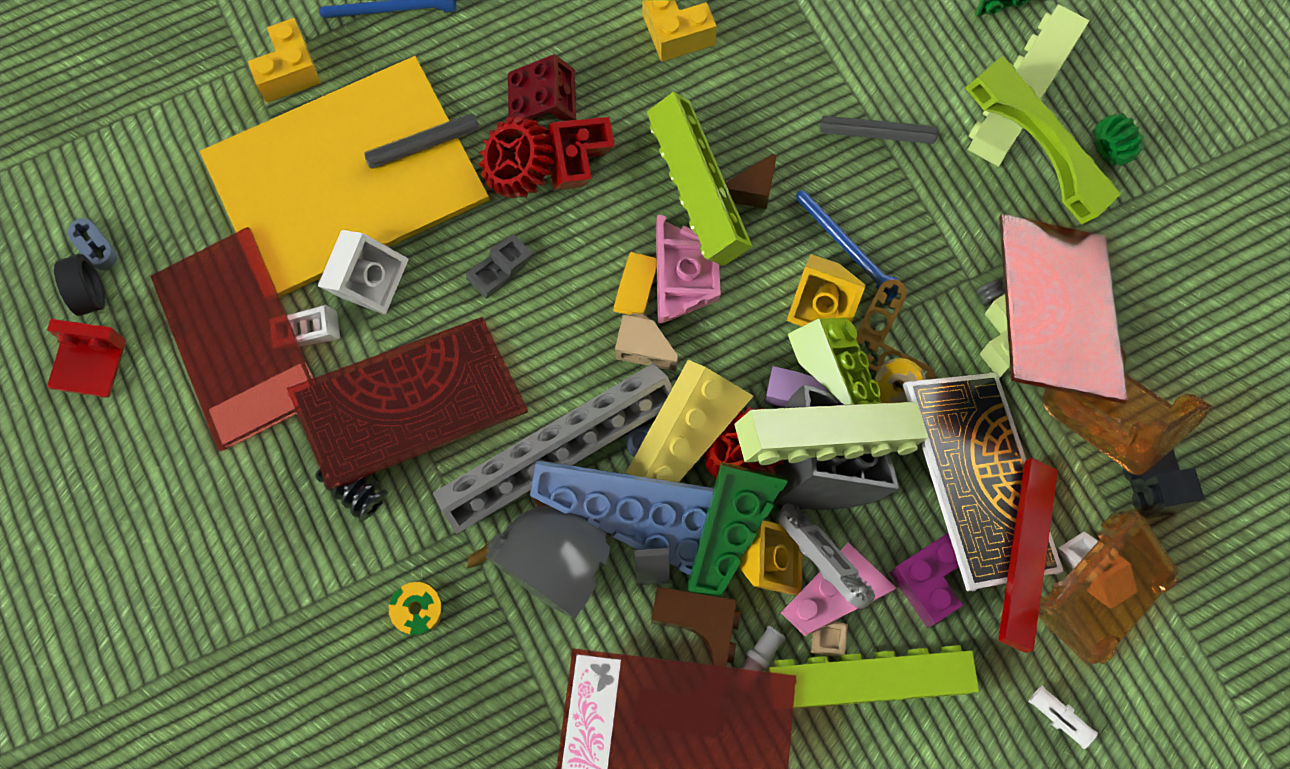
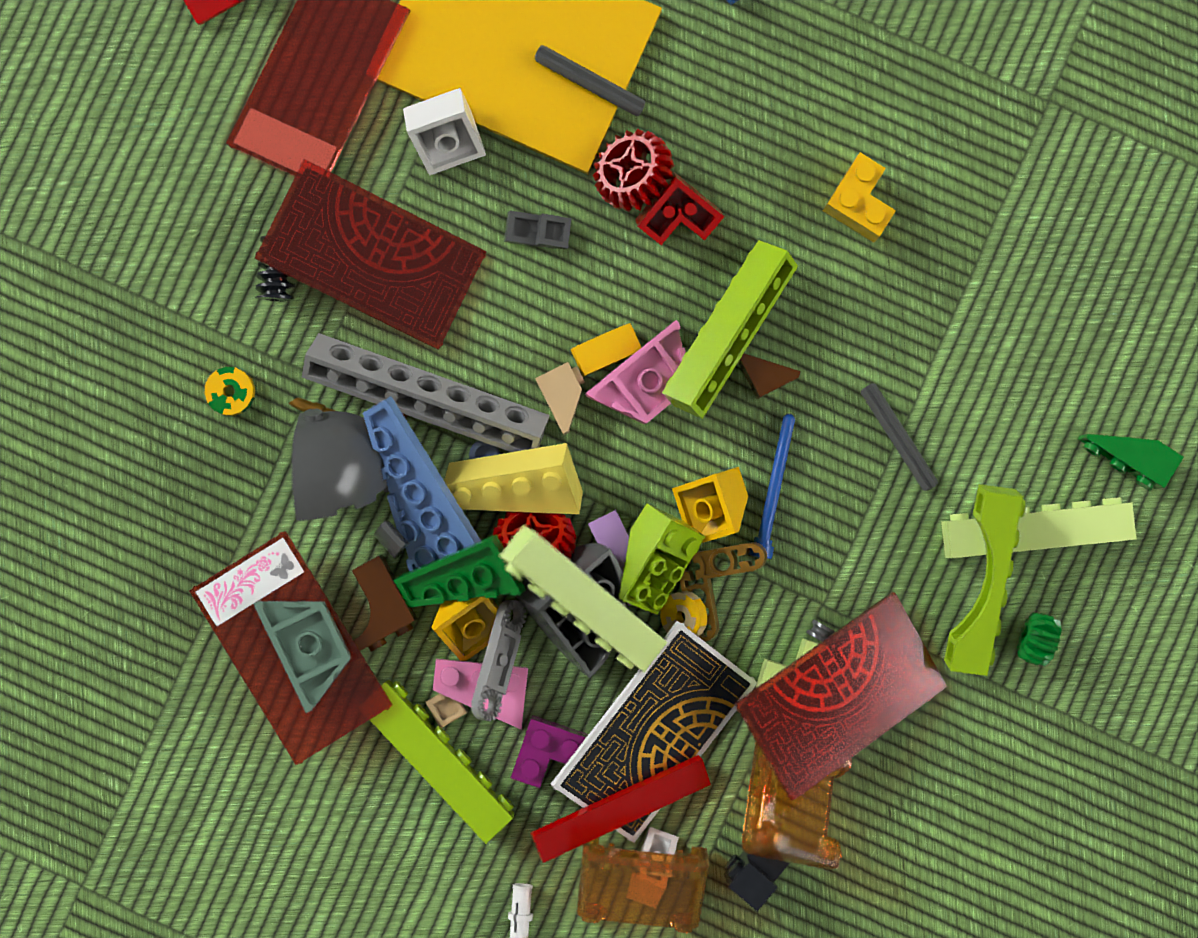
camera: 50 degrees right, 15 degrees up
(324, 325) = (383, 136): white slope -> none
(542, 89) = (712, 139): dark red bracket -> none
(686, 705) = (306, 645): none -> sand green wing
(763, 651) = (395, 667): light grey pin -> none

